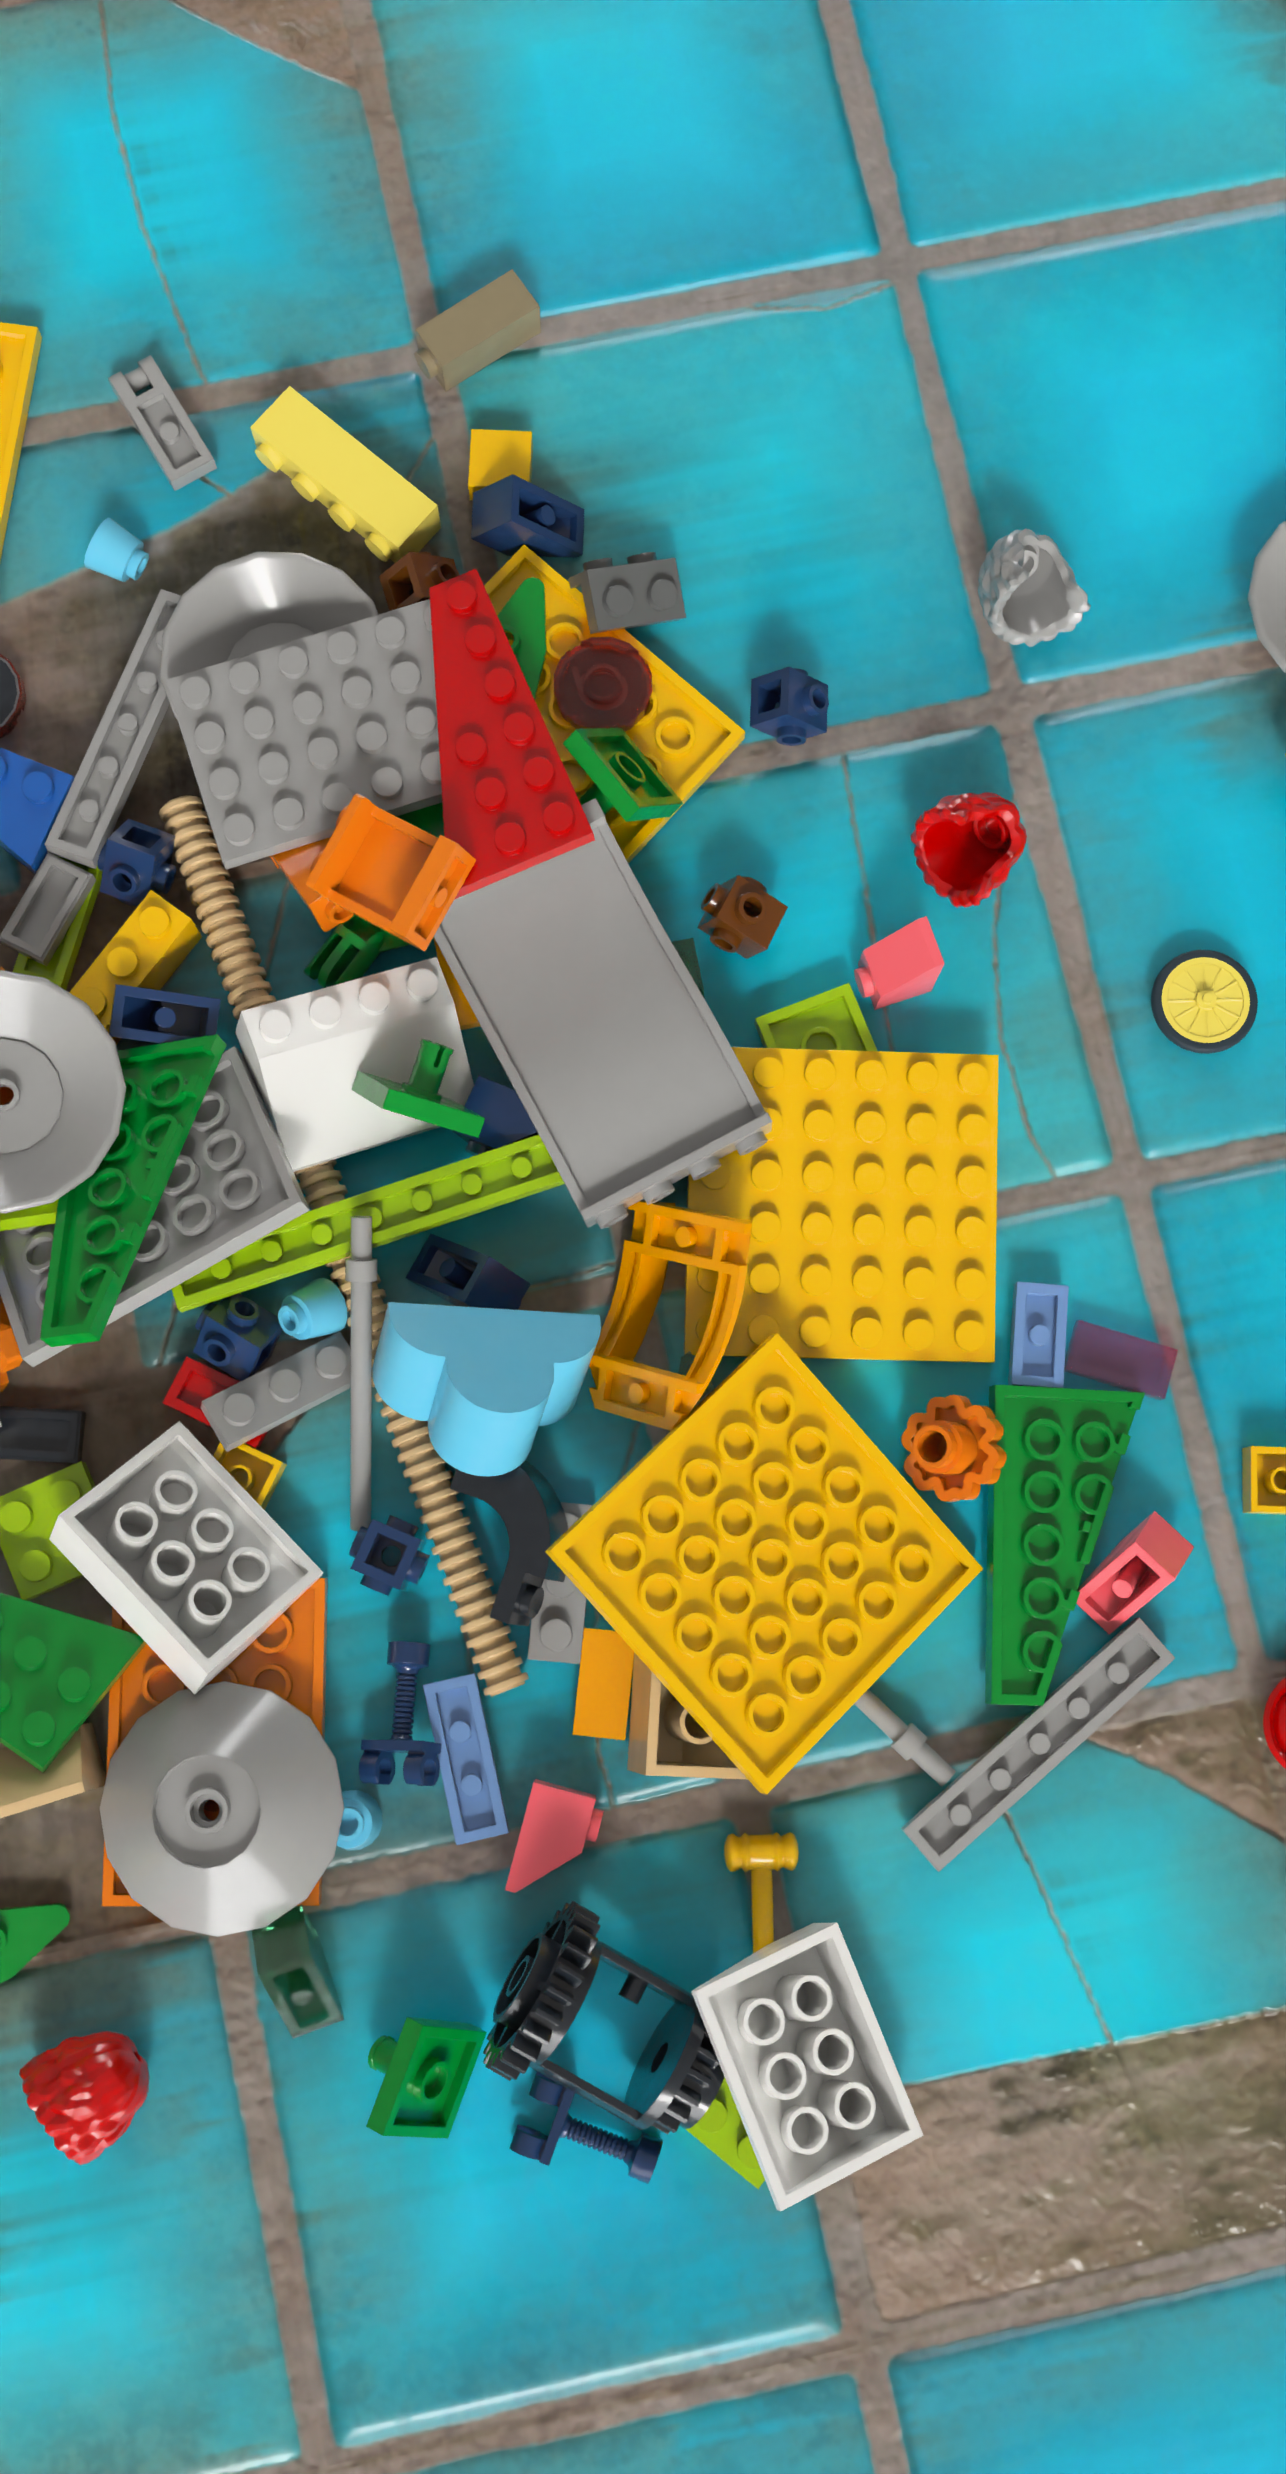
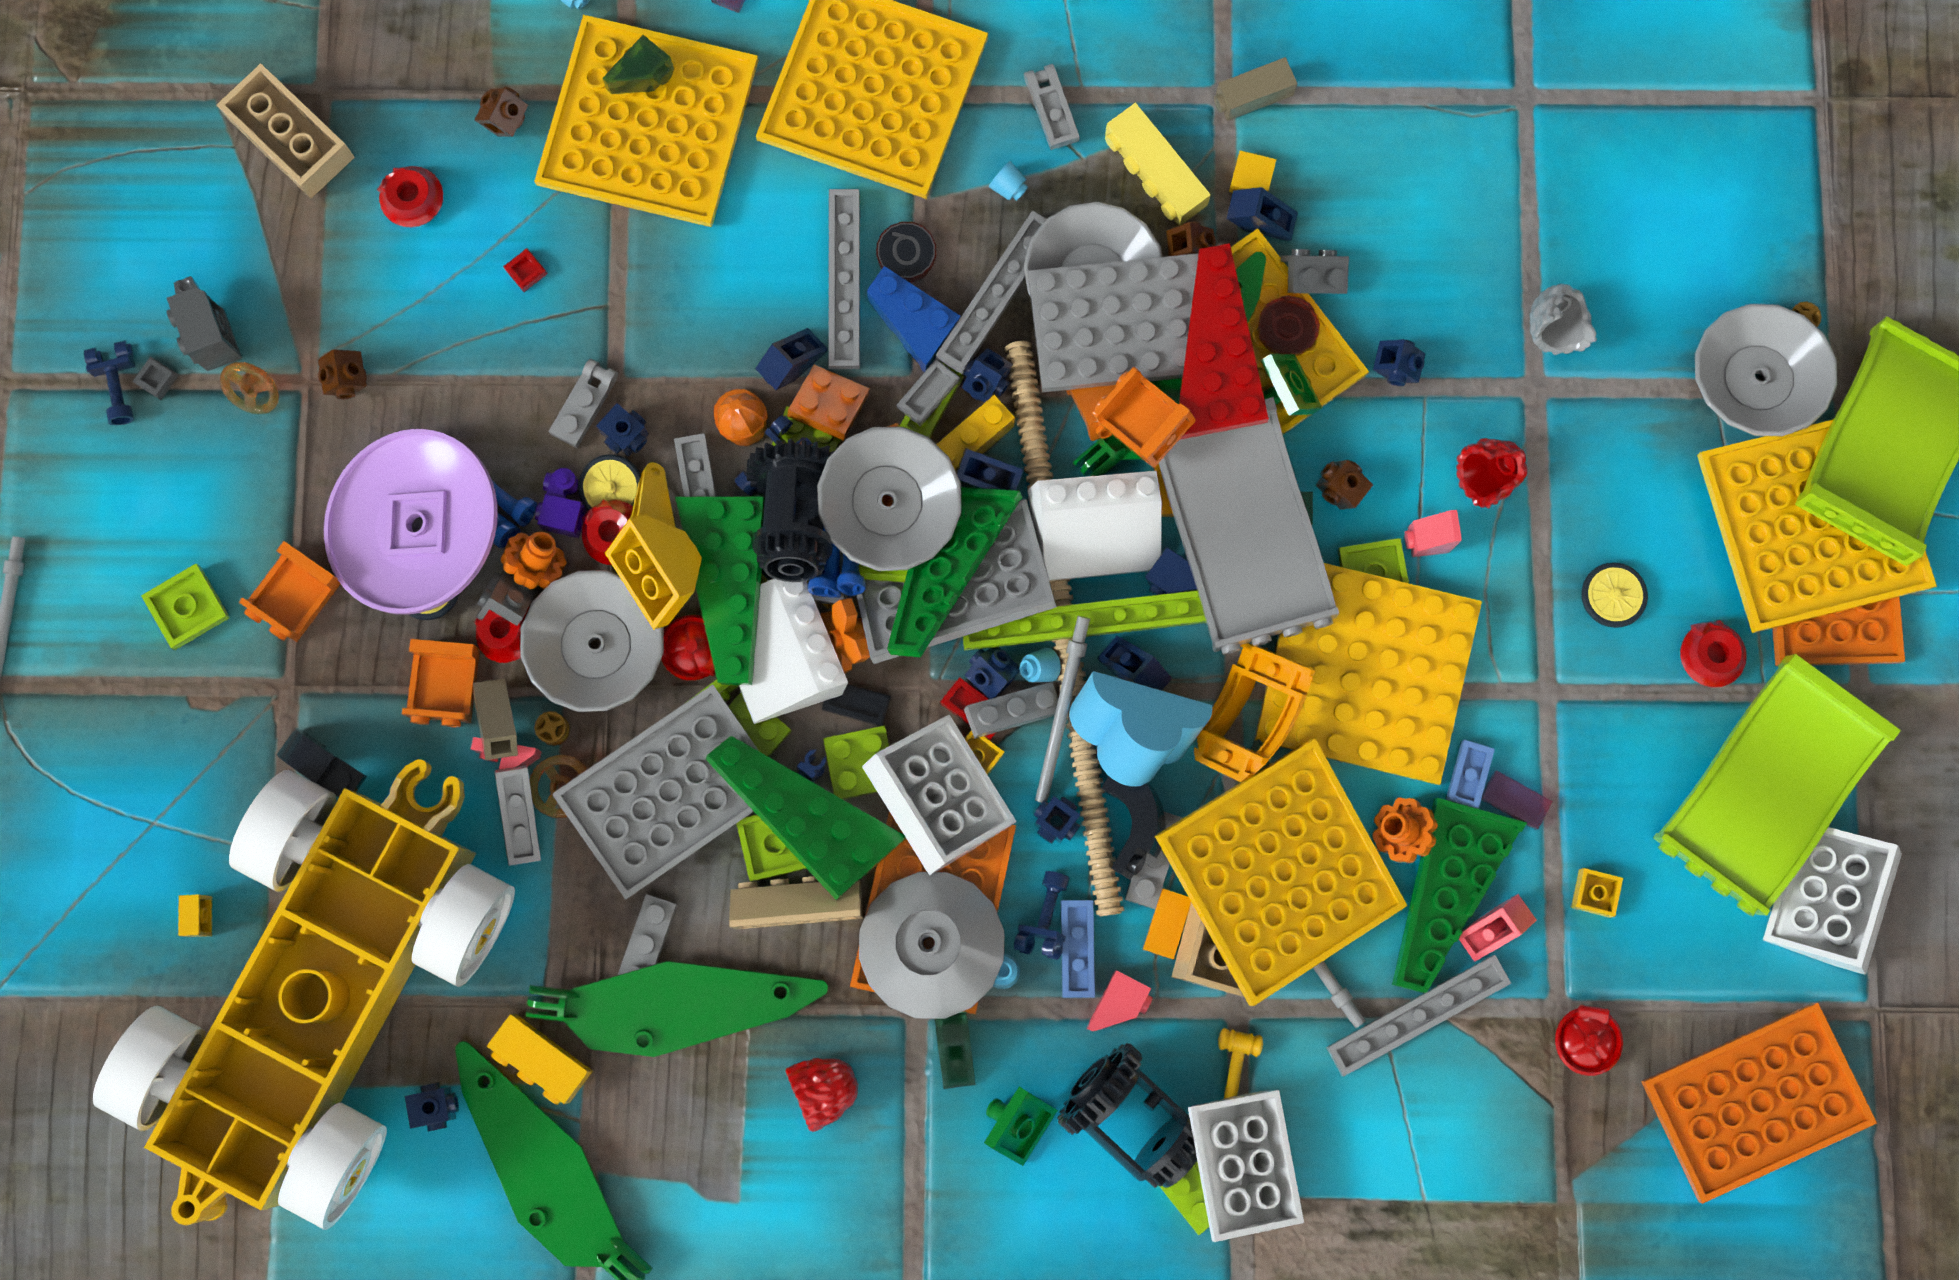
camera: 15 degrees right, 0 degrees up
(420, 1095) = (1132, 552): green tile -> none
(638, 2154) = (1133, 1199): dark blue bar -> none

